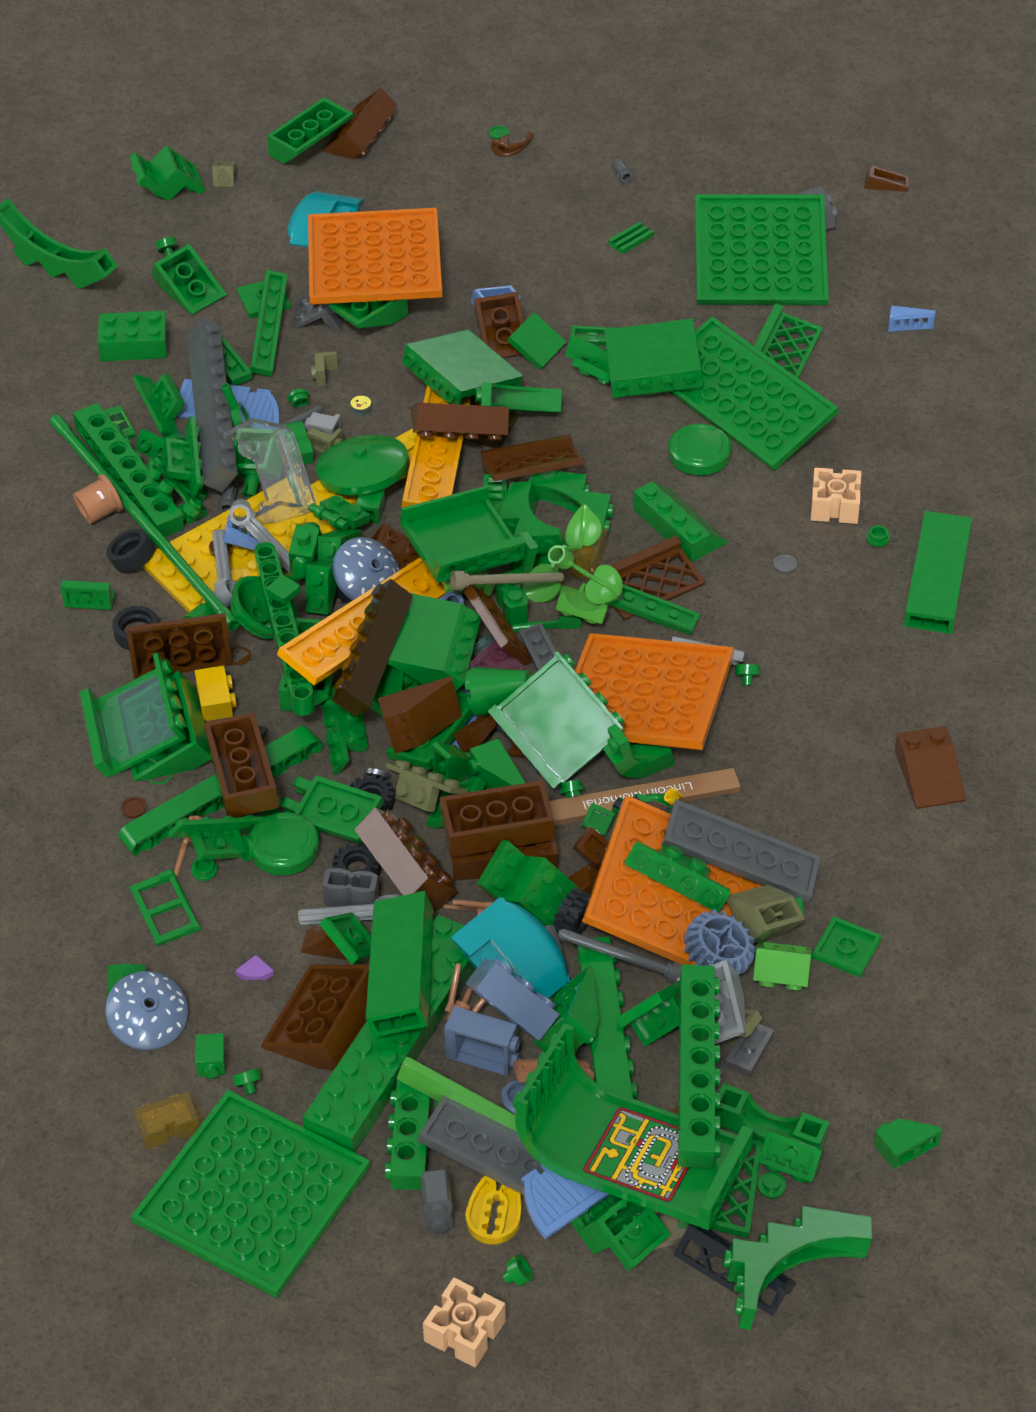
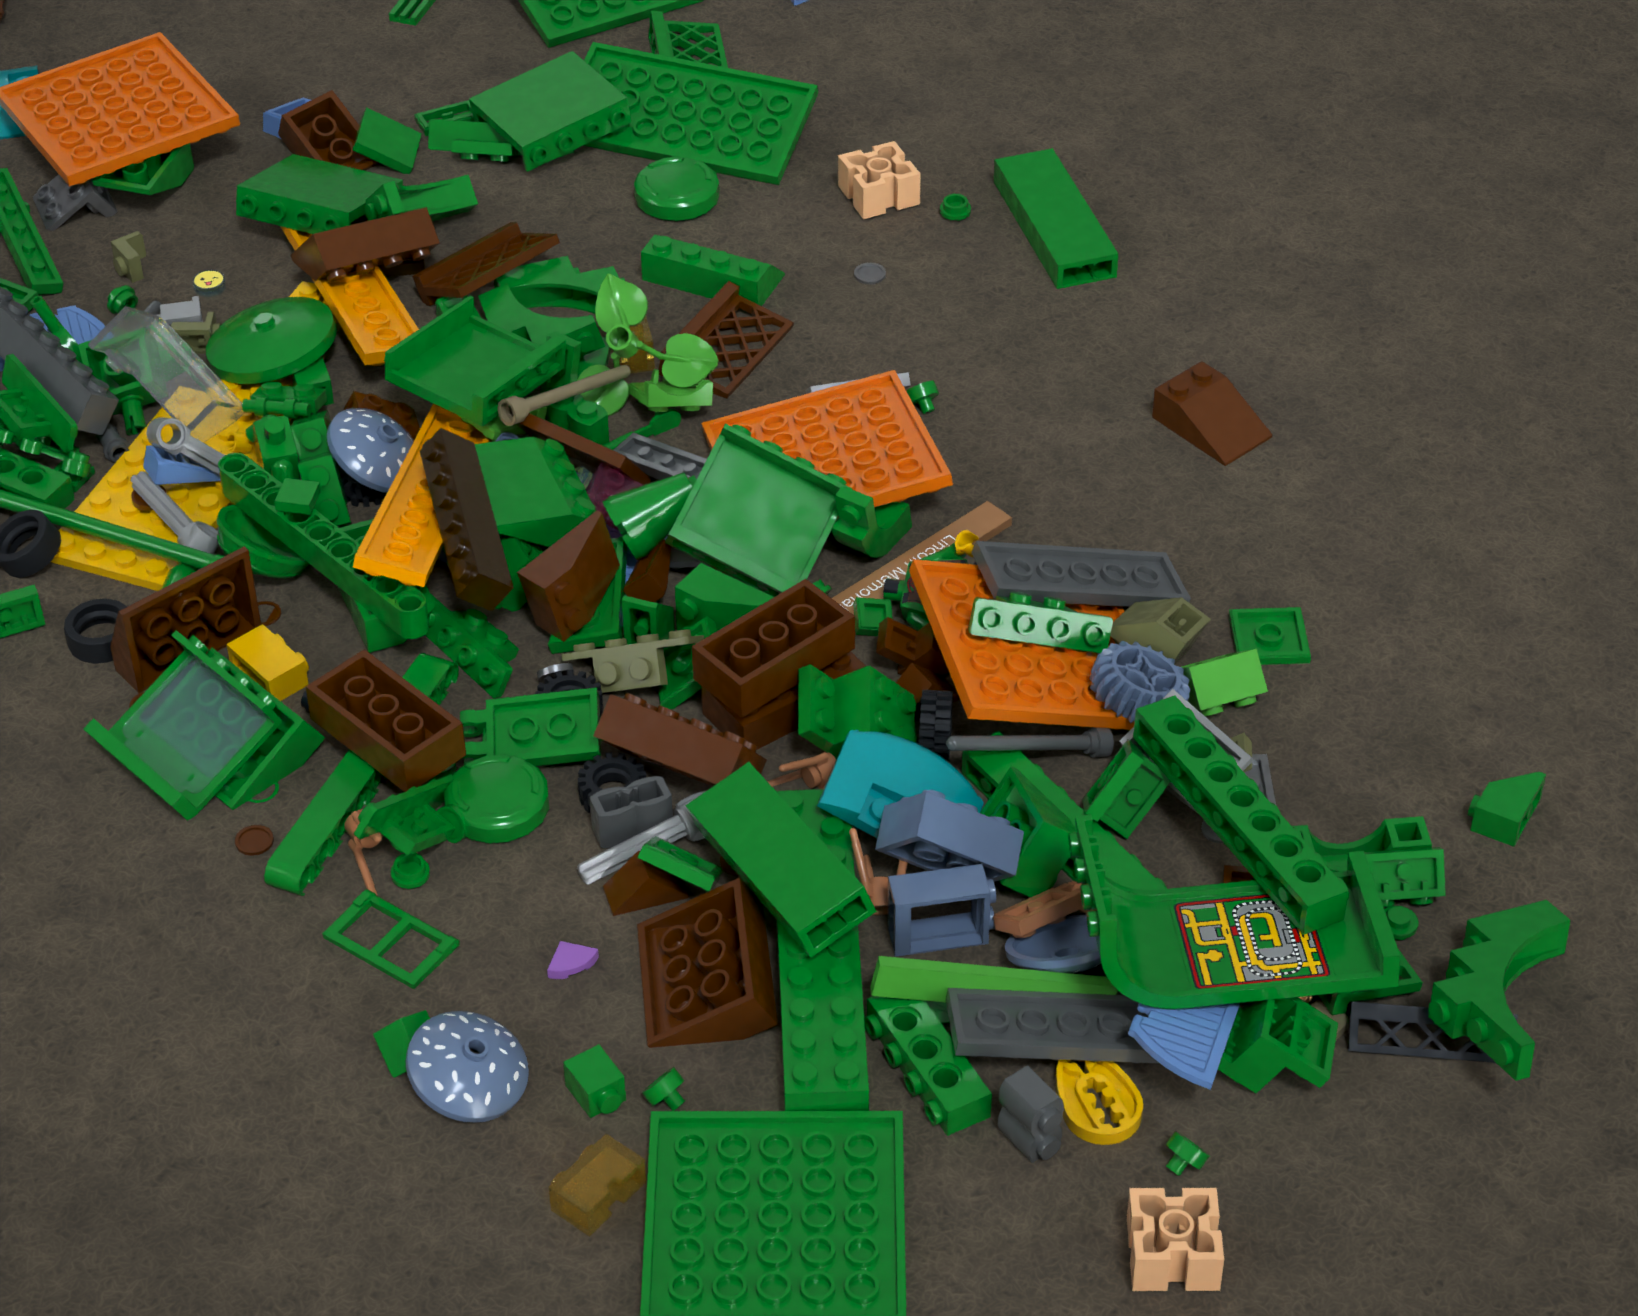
camera: 30 degrees left, 5 degrees down
(656, 610) = (765, 371): green tile -> none

